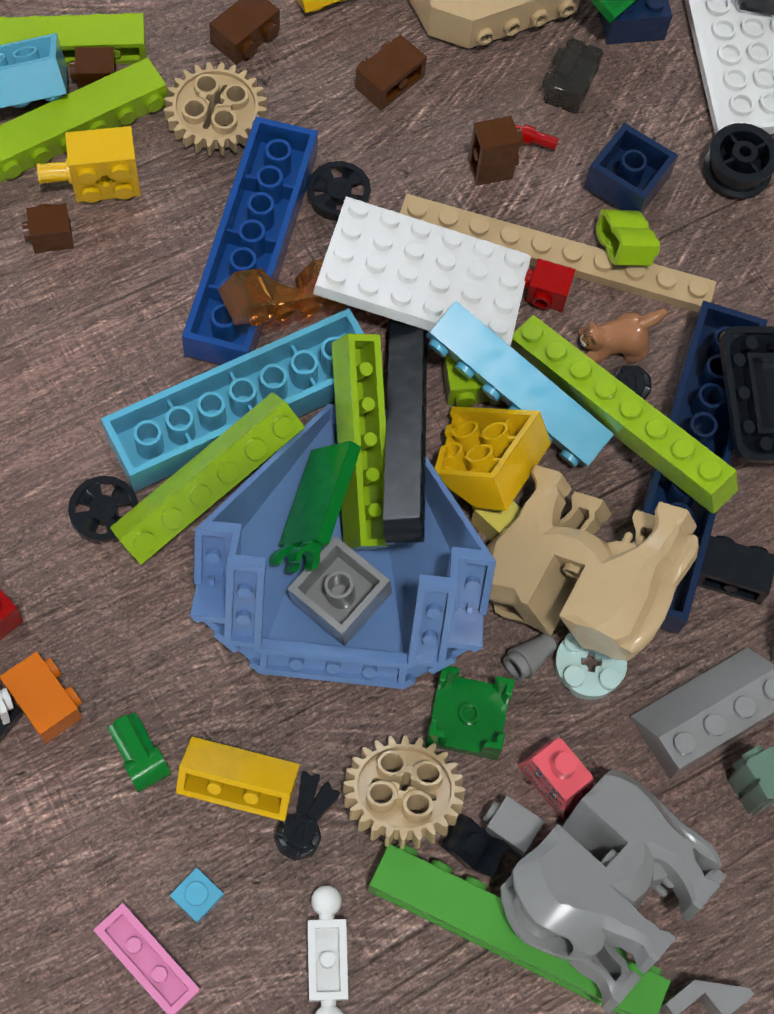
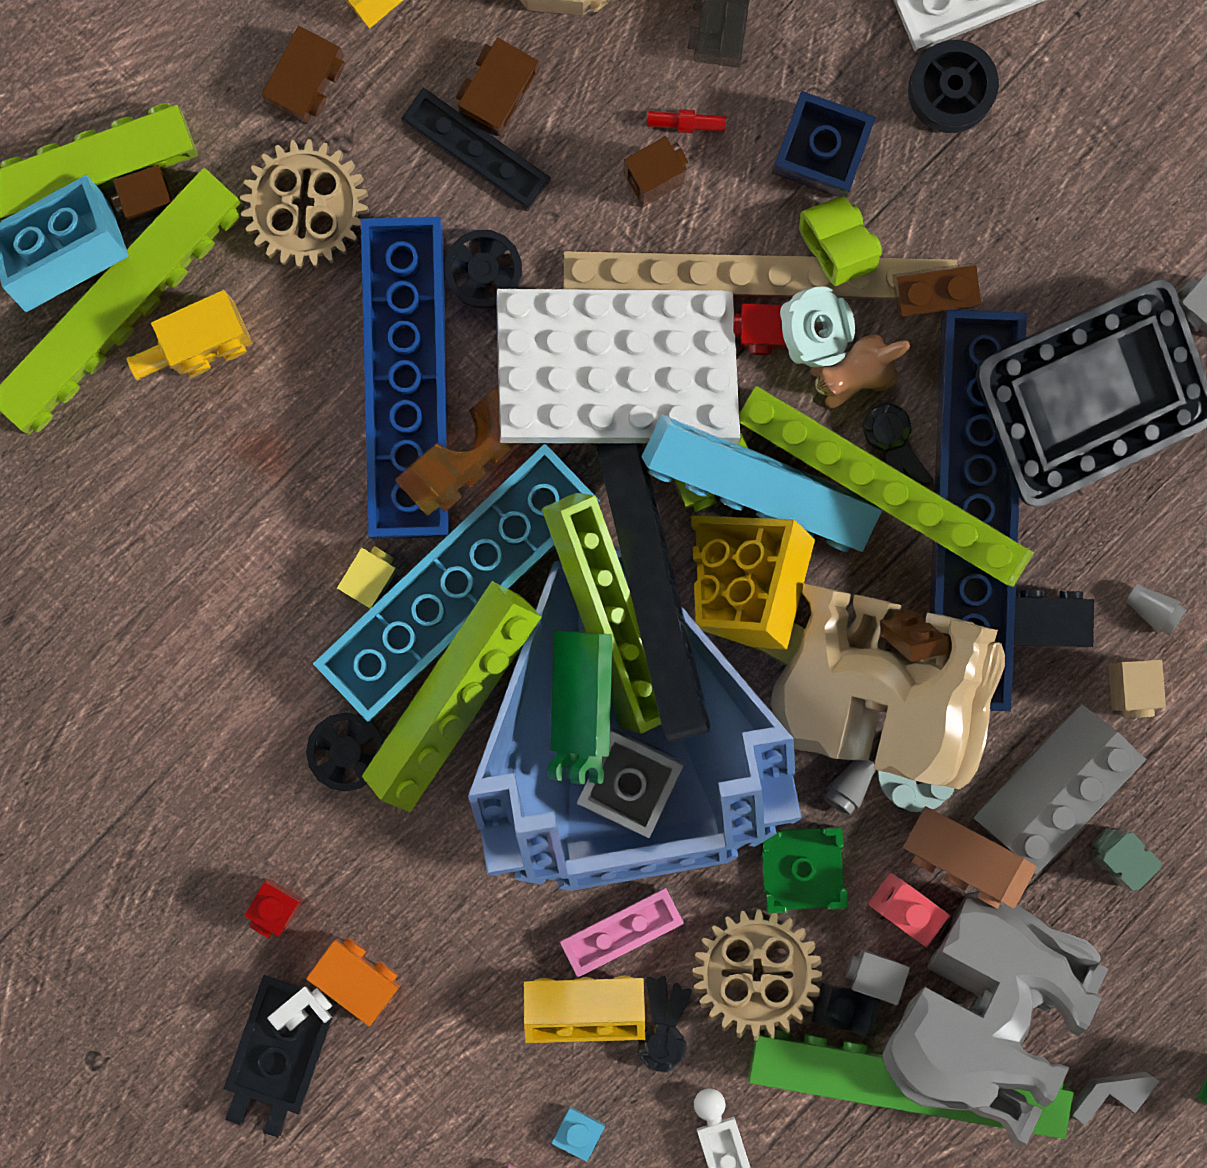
camera: 10 degrees left, 20 degrees up
(48, 228) = (164, 427): reddish brown brick -> none
(142, 759) = (480, 1017): green piece -> none
(168, 372) = (368, 576): none -> light yellow brick
(292, 723) = (621, 932): none -> bright pink plate
(360, 112) = (475, 149): none -> black tile
(579, 291) = (799, 331): none -> light aqua plate
(621, 519) = (914, 636): none -> reddish brown plate
(623, 737) = (969, 859): none -> nougat brick
(690, 283) = (936, 289): none -> reddish brown brick

